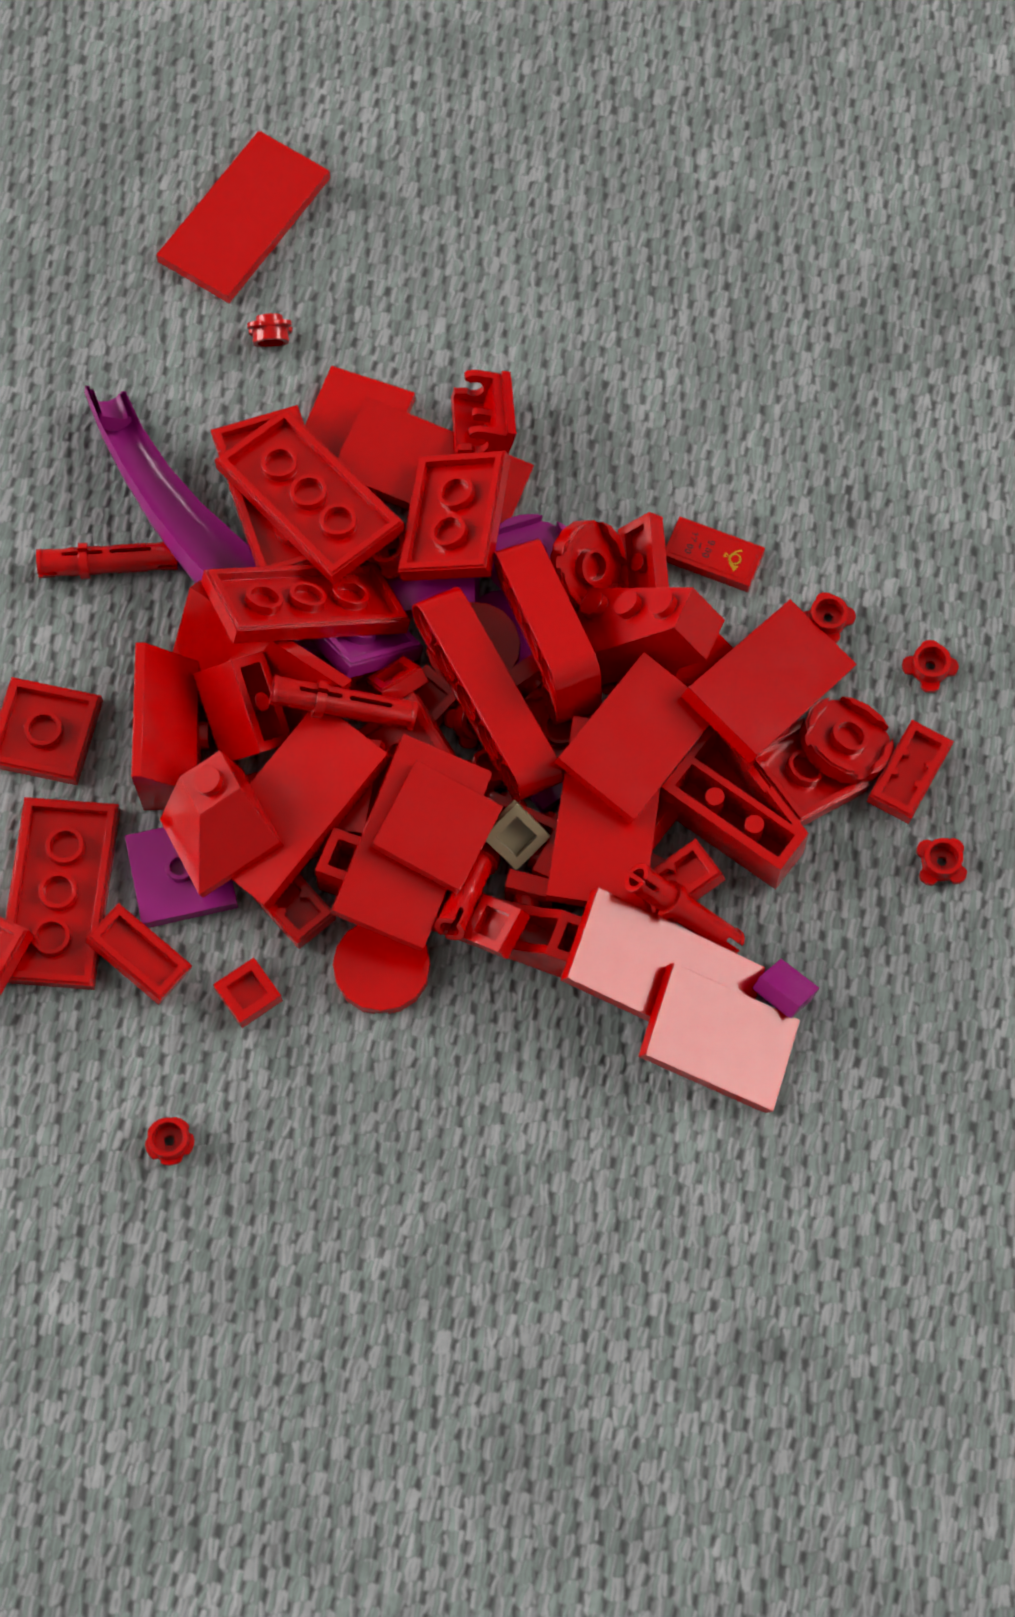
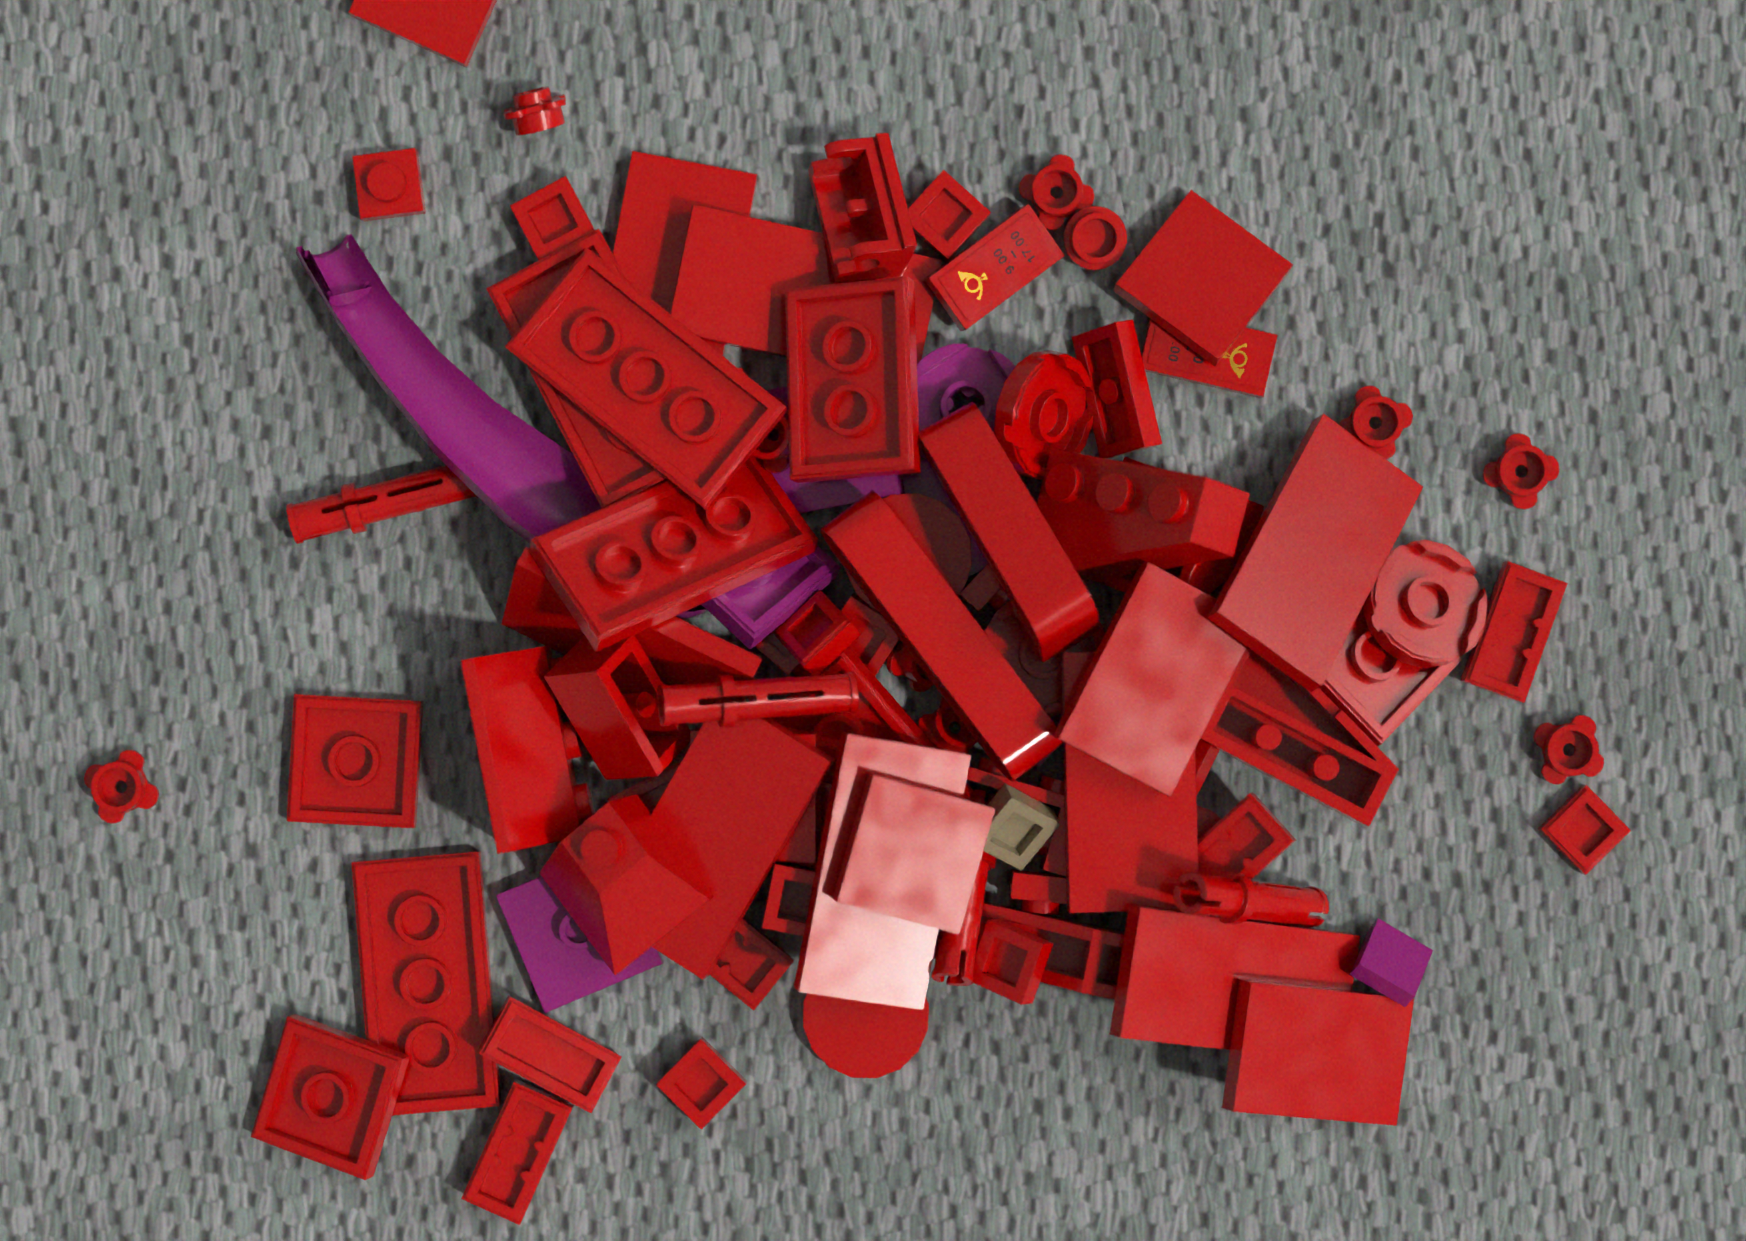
camera: 10 degrees left, 20 degrees up
(98, 1021) = (517, 1151): none -> red plate
(158, 364) = (389, 184): none -> red plate
(265, 394) = (552, 217): none -> red plate
(542, 437) = (946, 215): none -> red plate
(570, 474) = (994, 267): none -> red tile
(623, 424) = (1057, 174): none -> red plate
(645, 468) = (1094, 238): none -> red plate
(717, 502) = (1203, 277): none -> red tile
(946, 920) = (1584, 829): none -> red tile

